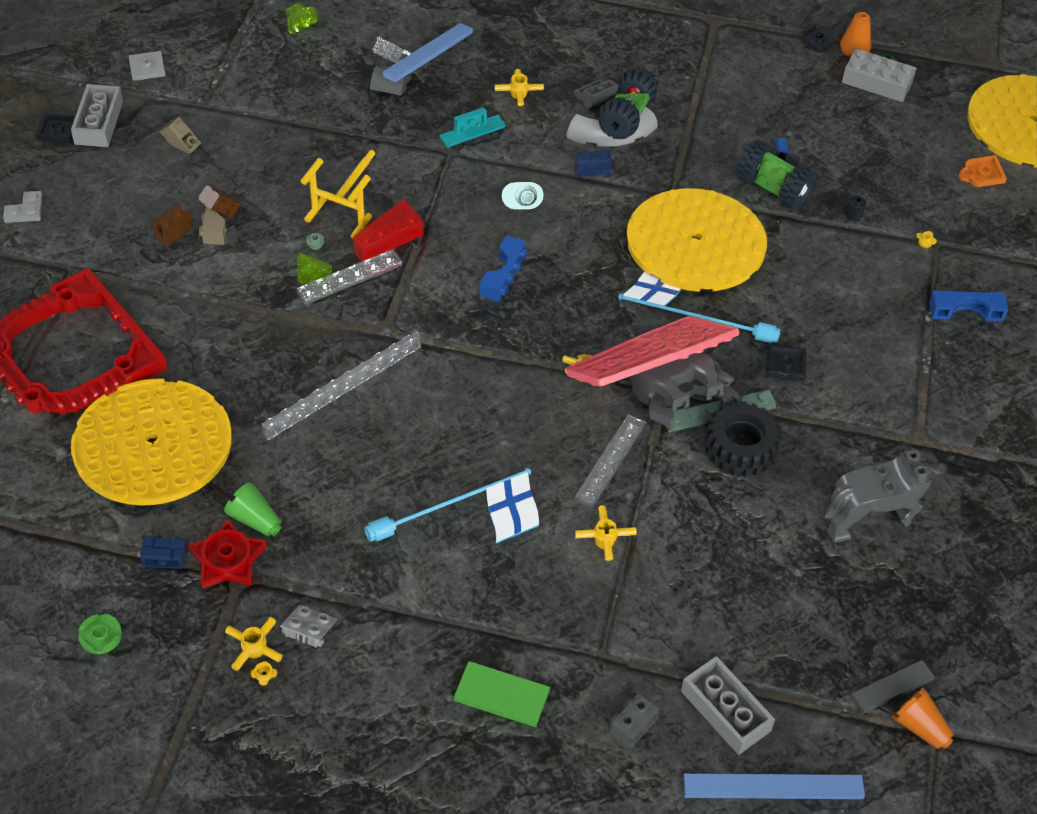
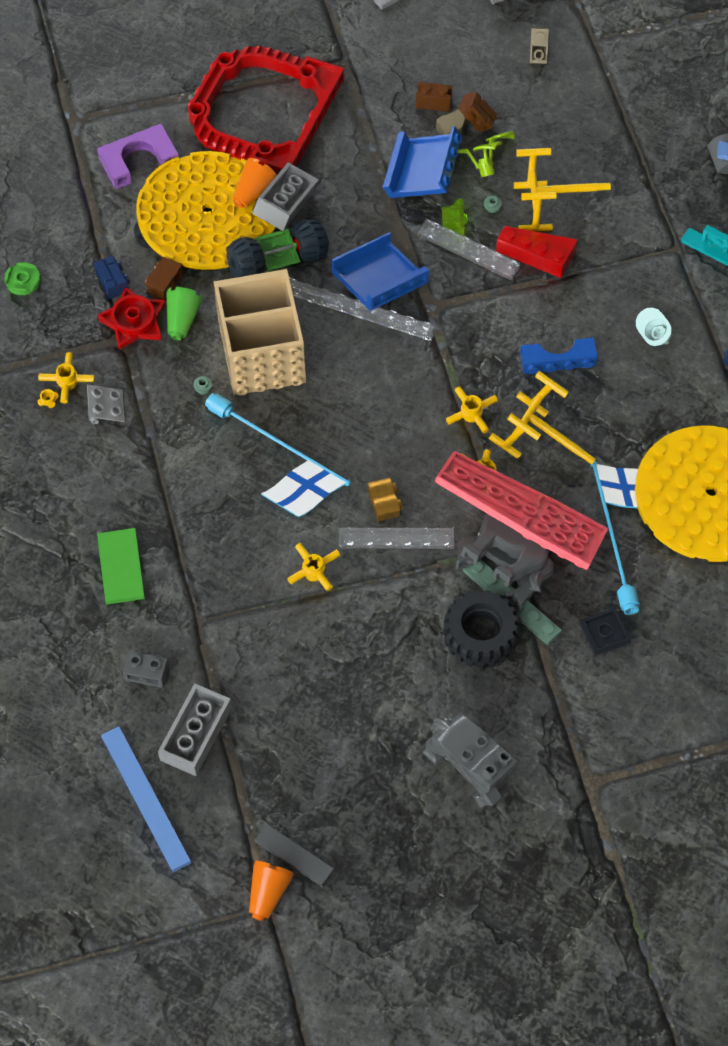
camera: 65 degrees right, 10 degrees up
(34, 446) = (152, 140): none -> medium lavender arch
(159, 384) = (252, 182): none -> orange cone
(196, 369) = (285, 196): none -> light grey brick
(201, 510) = (164, 276): none -> reddish brown brick
(241, 424) = (278, 250): none -> black plate
(243, 260) = (422, 164): none -> panel
(274, 224) = (486, 164): none -> lime plant
(329, 345) = (378, 272): none -> blue panel
(337, 450) = (260, 332): none -> tan container
(344, 538) = (202, 389): none -> sand green plate
(516, 348) = (476, 411): none -> yellow bar
(565, 450) = (384, 499): none -> pearl gold brick
(581, 302) = (522, 426): none -> yellow piece

